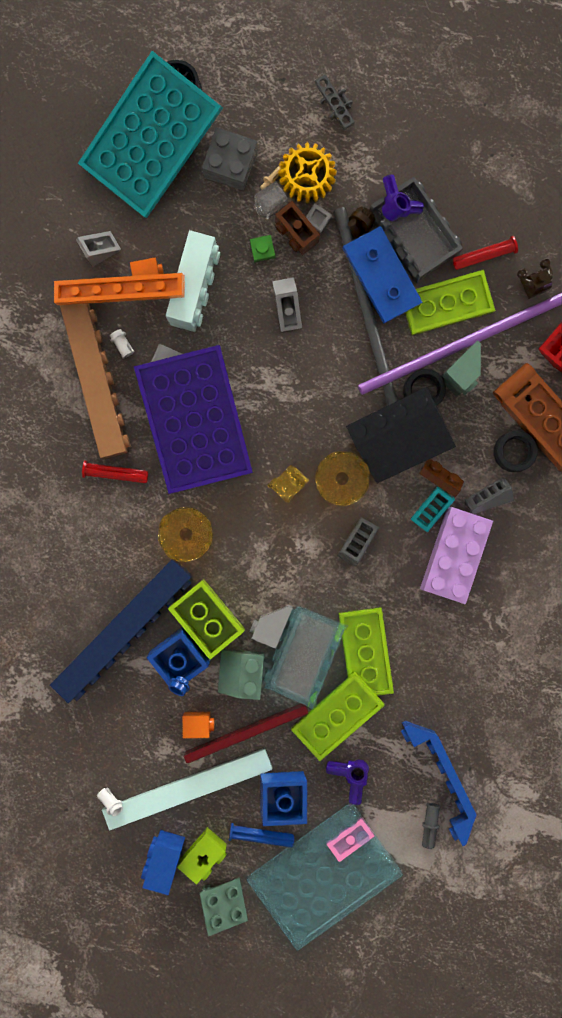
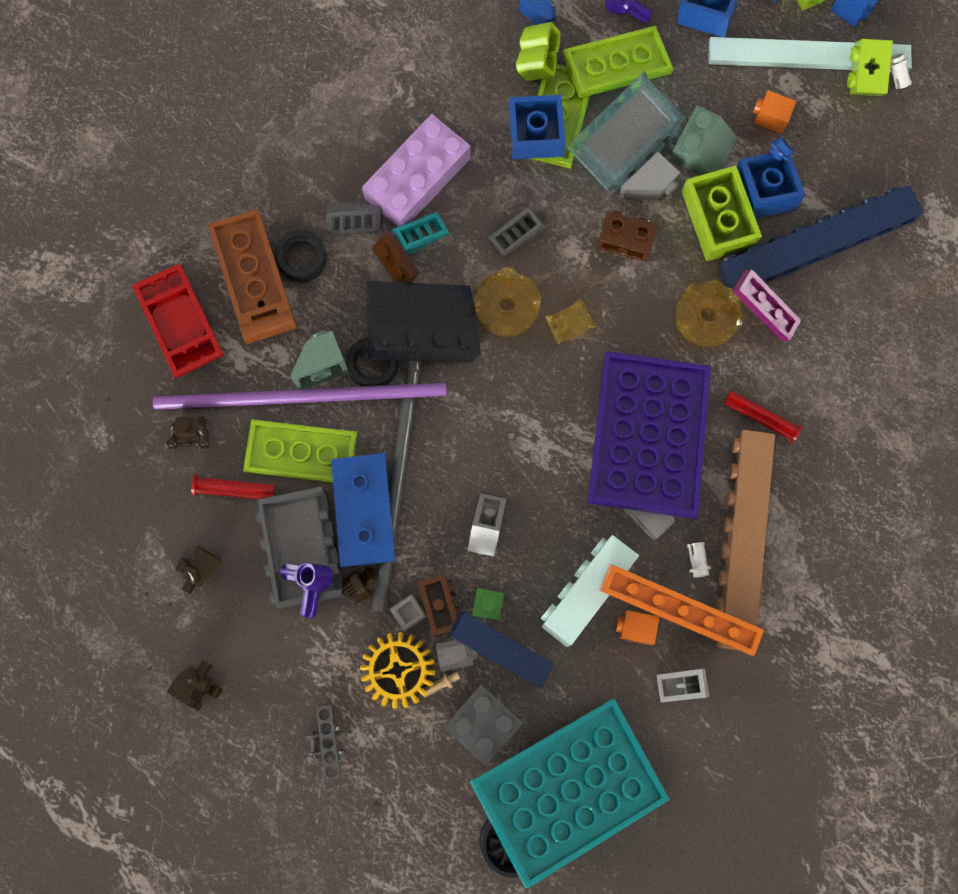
camera: 155 degrees left, 10 degrees down
(125, 784) = (878, 56): none -> lime brick
(143, 557) = (766, 305): none -> plate
(239, 214) = (501, 649): none -> dark blue tile
(245, 732) = (726, 83): dark red tile -> none
(272, 572) = (627, 235): none -> reddish brown brick
(379, 627) = (536, 126): none -> blue brick
(403, 696) = (539, 51): none -> lime brick
(448, 100) = (193, 685): none -> dark brown piece
(481, 185) = (199, 569): none -> dark brown piece

